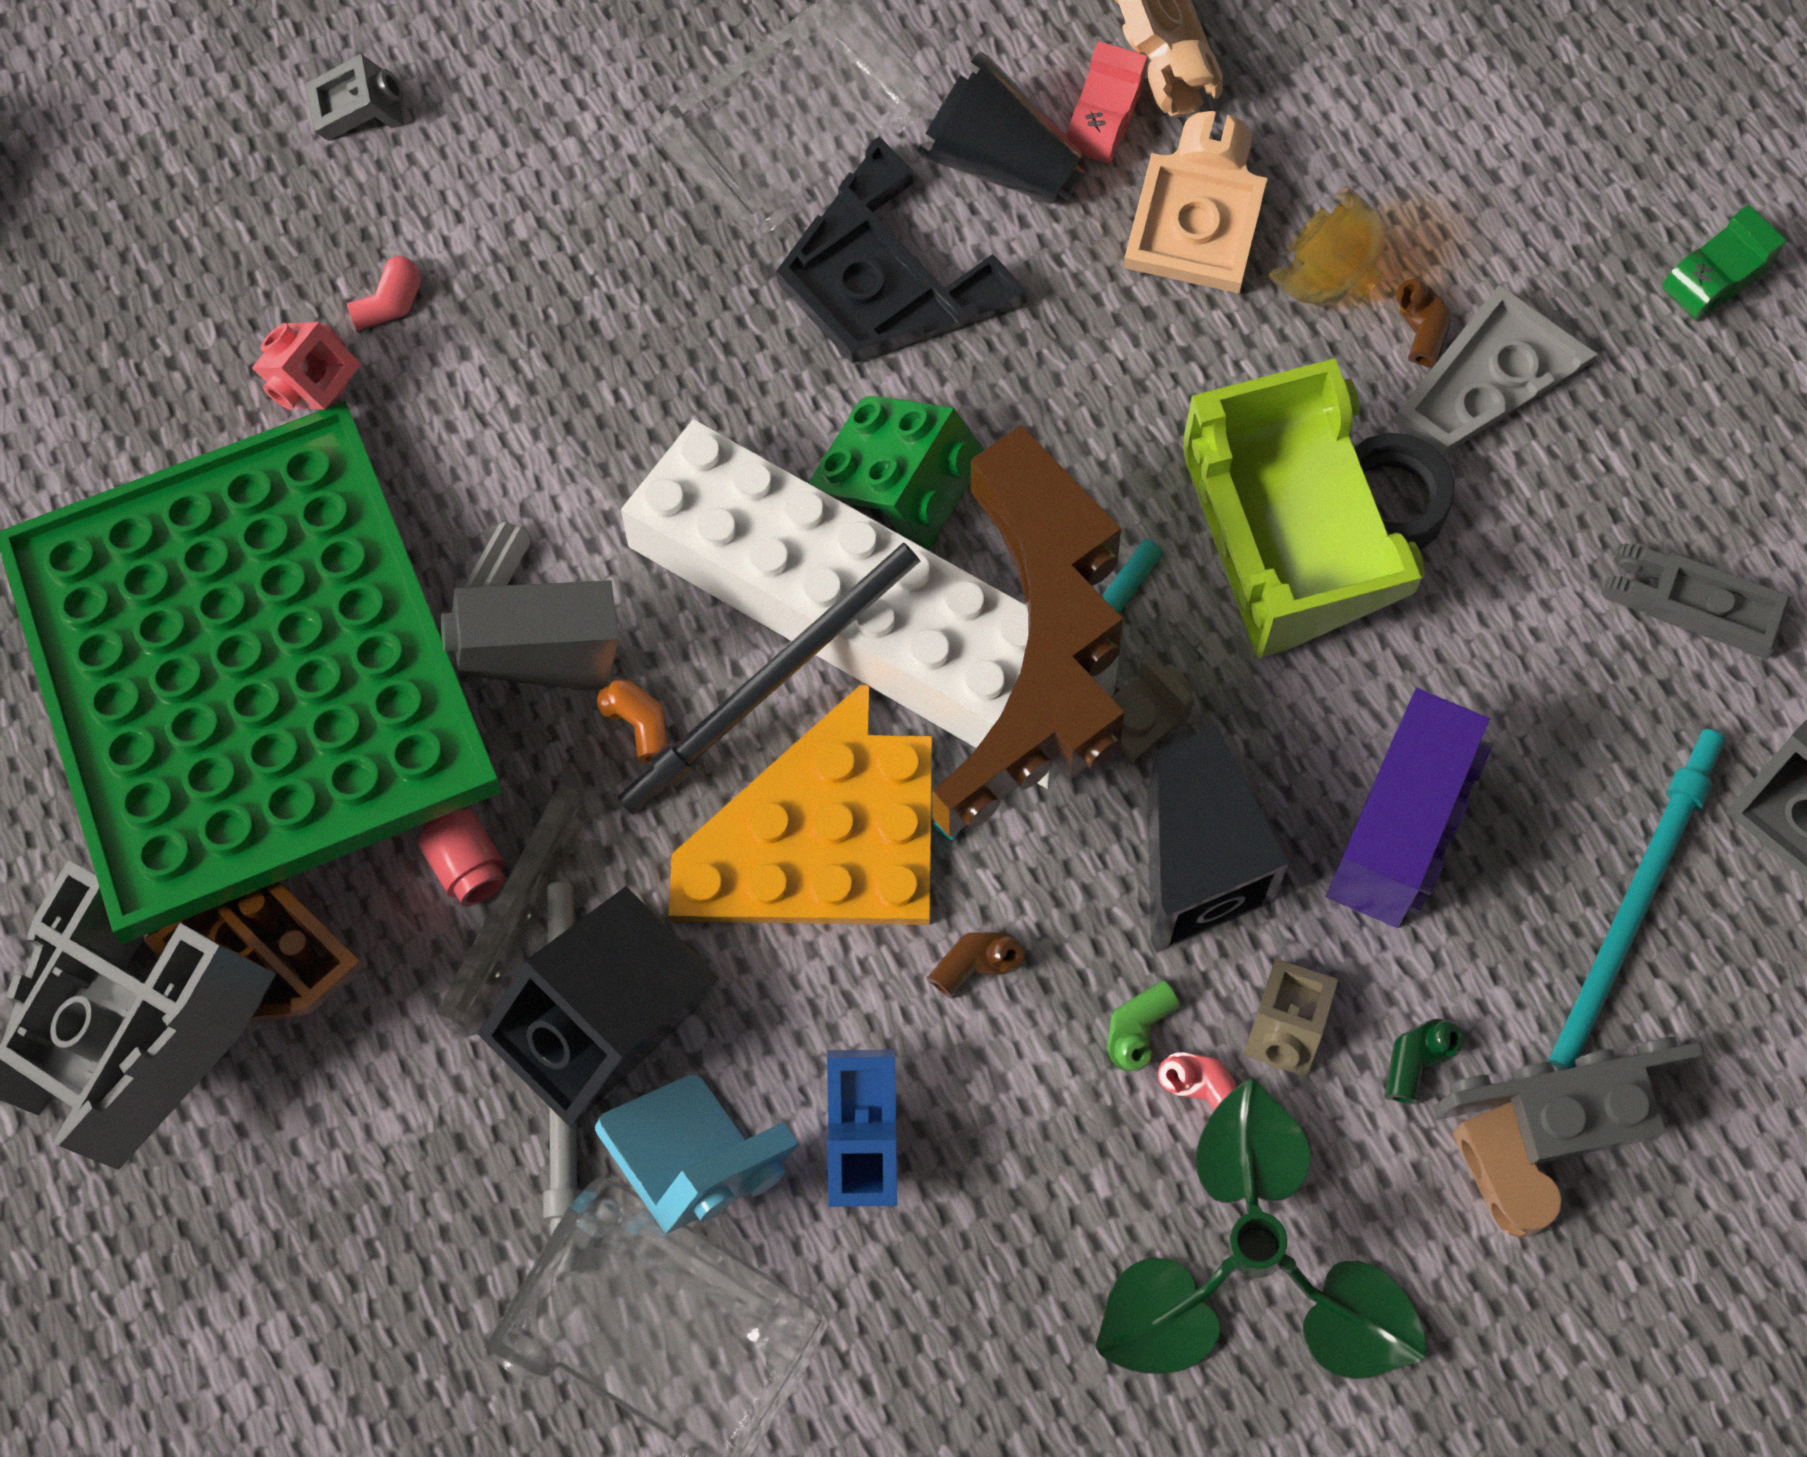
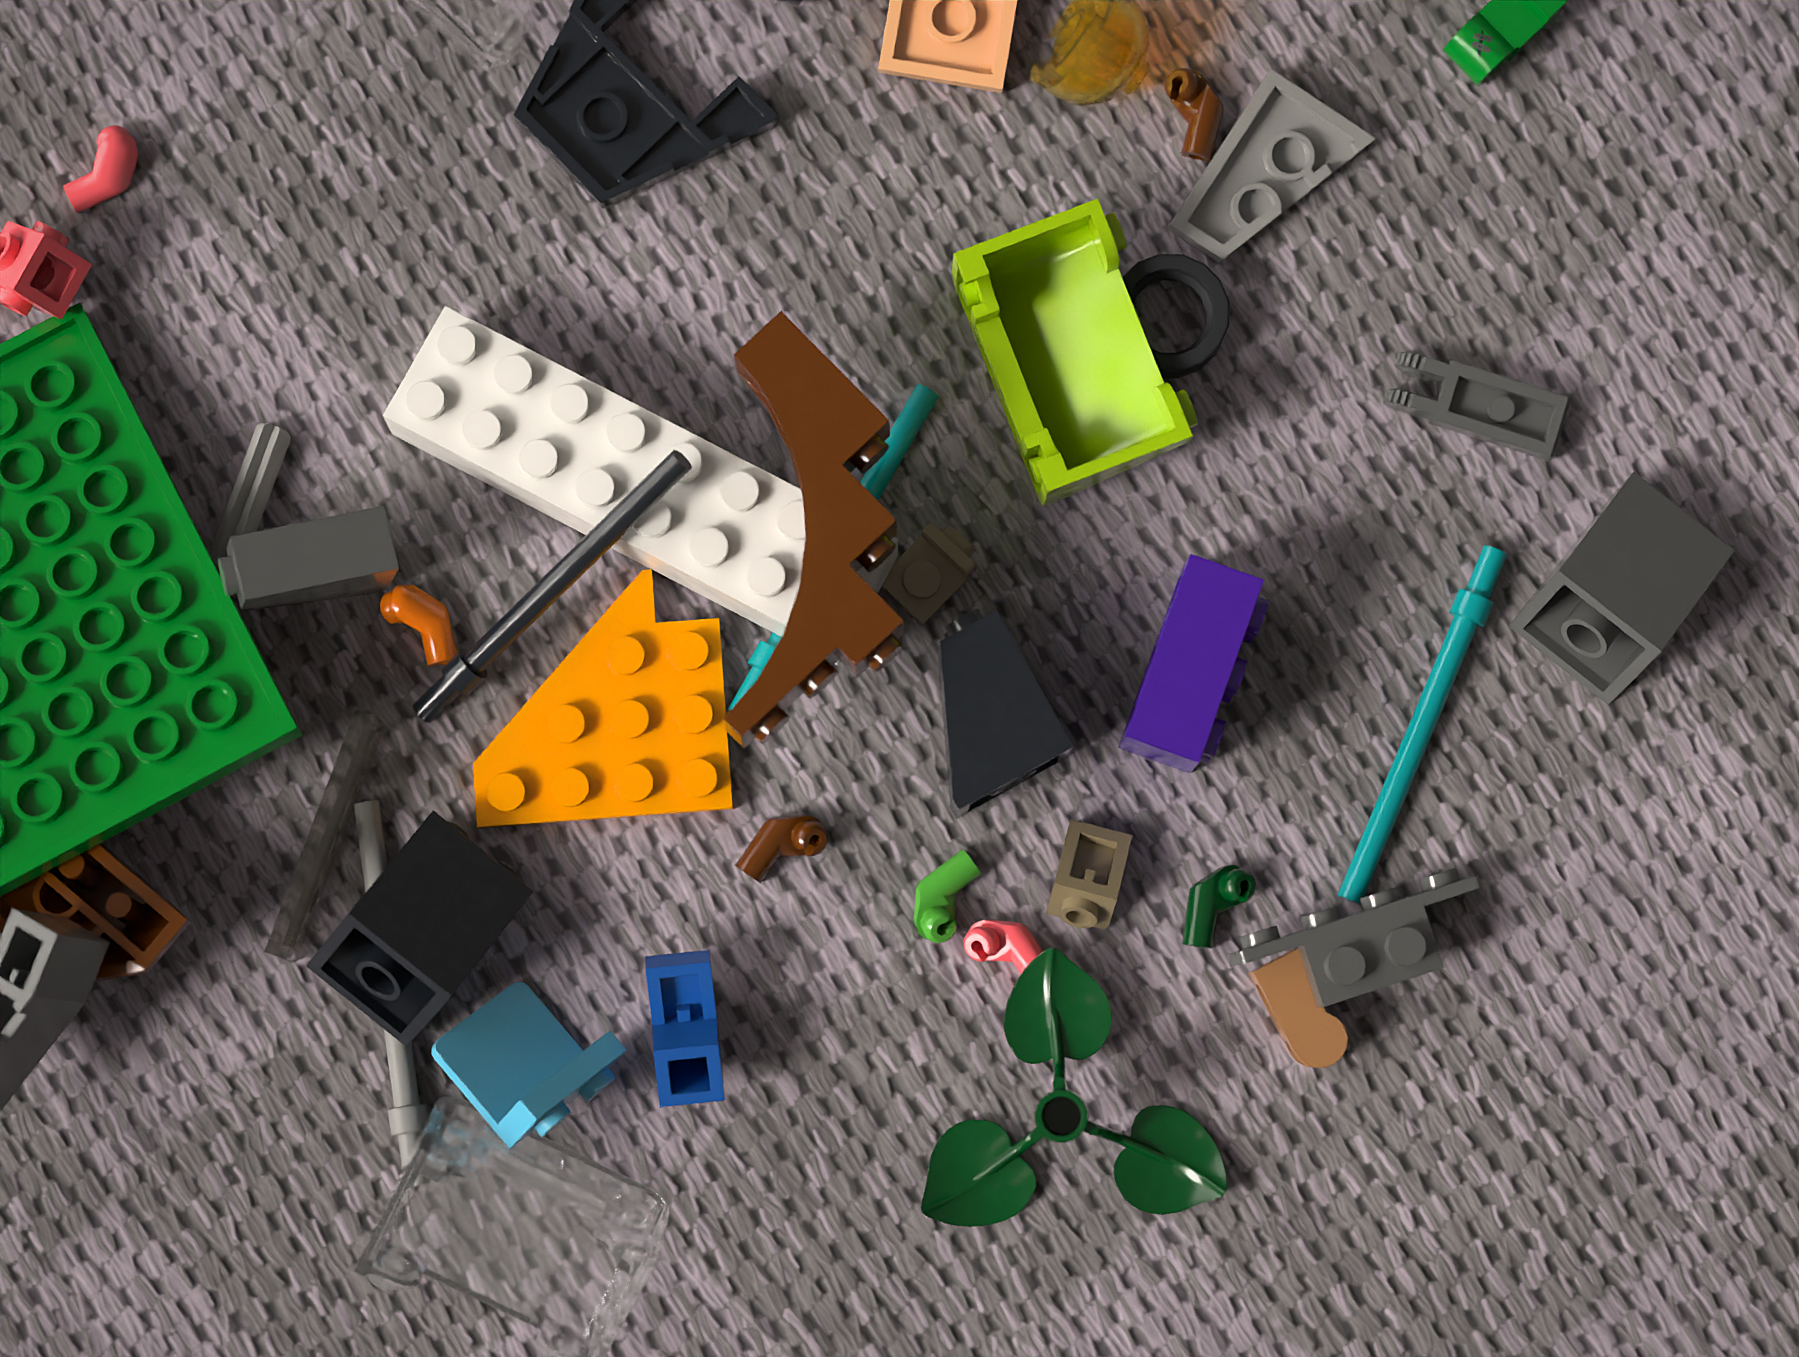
camera: 10 degrees left, 15 degrees up
(463, 857) = (271, 791): coral brick -> none
(901, 461) = (660, 325): green bracket -> none

